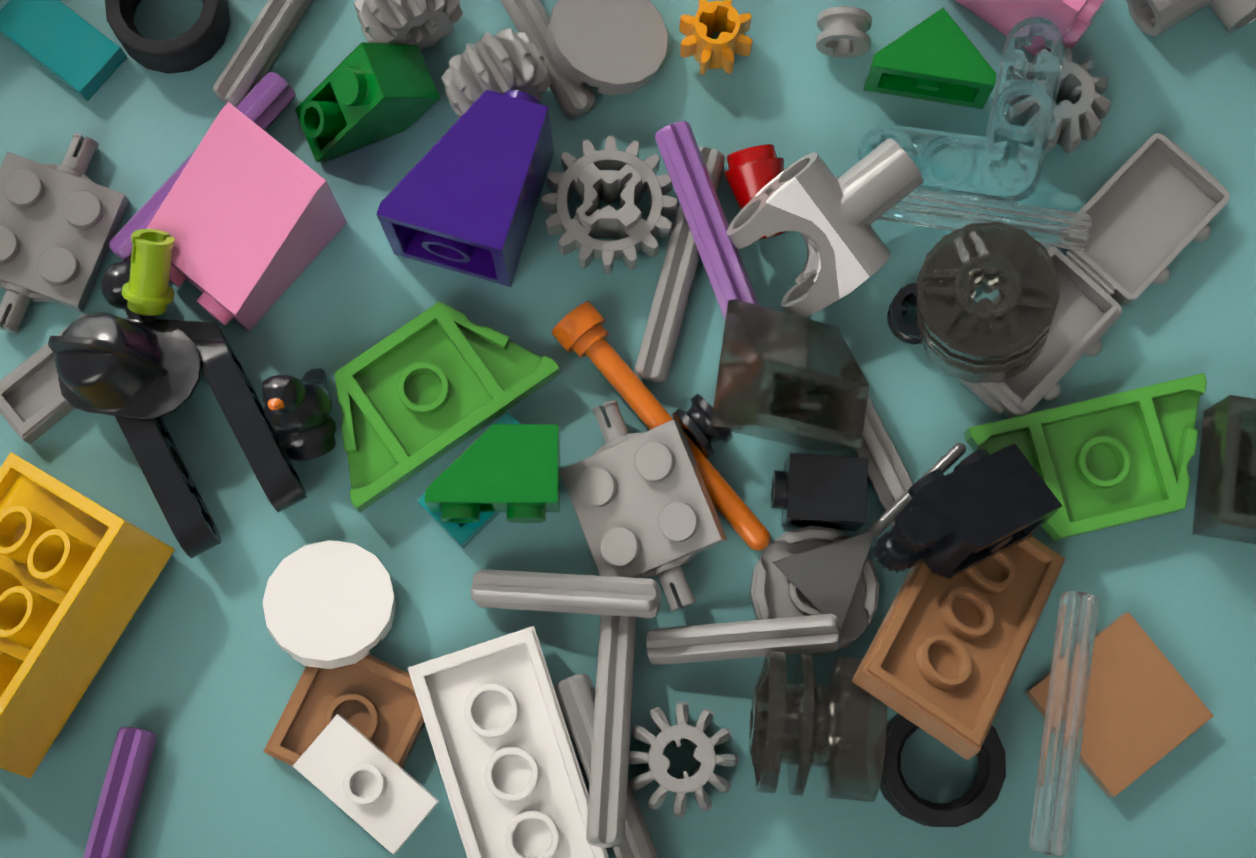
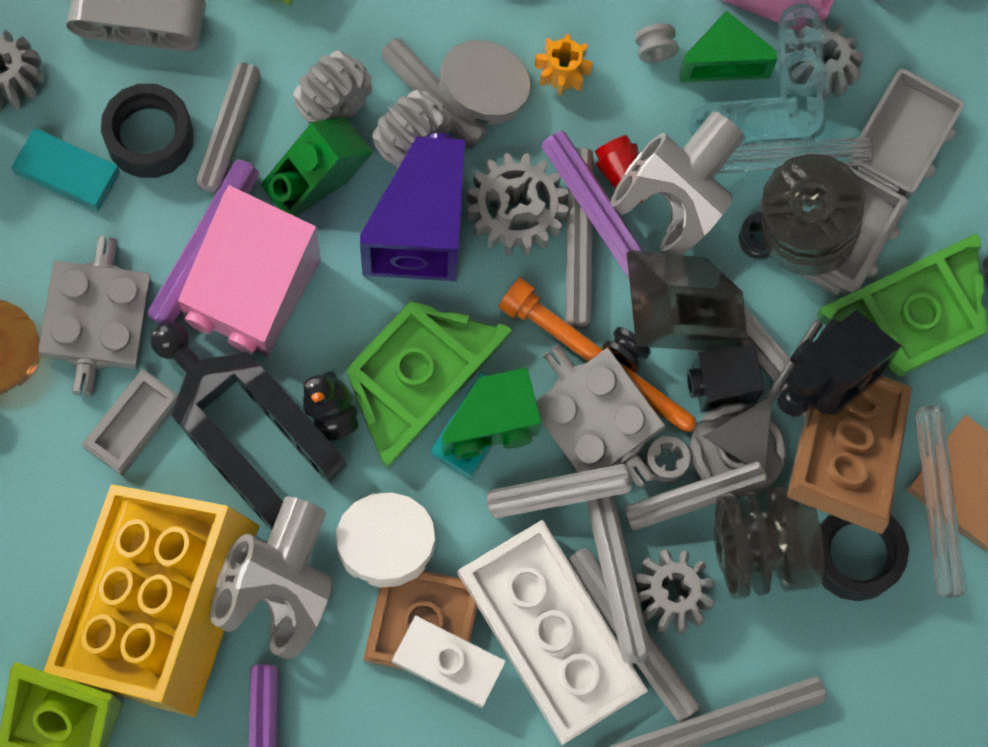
camera: 20 degrees left, 5 degrees down
(125, 366) = (190, 398): black piece -> none
(150, 267) = (193, 324): lime pin -> none
(175, 620) = (278, 576): none -> light grey connector
(704, 569) = (674, 445): none -> light grey bush

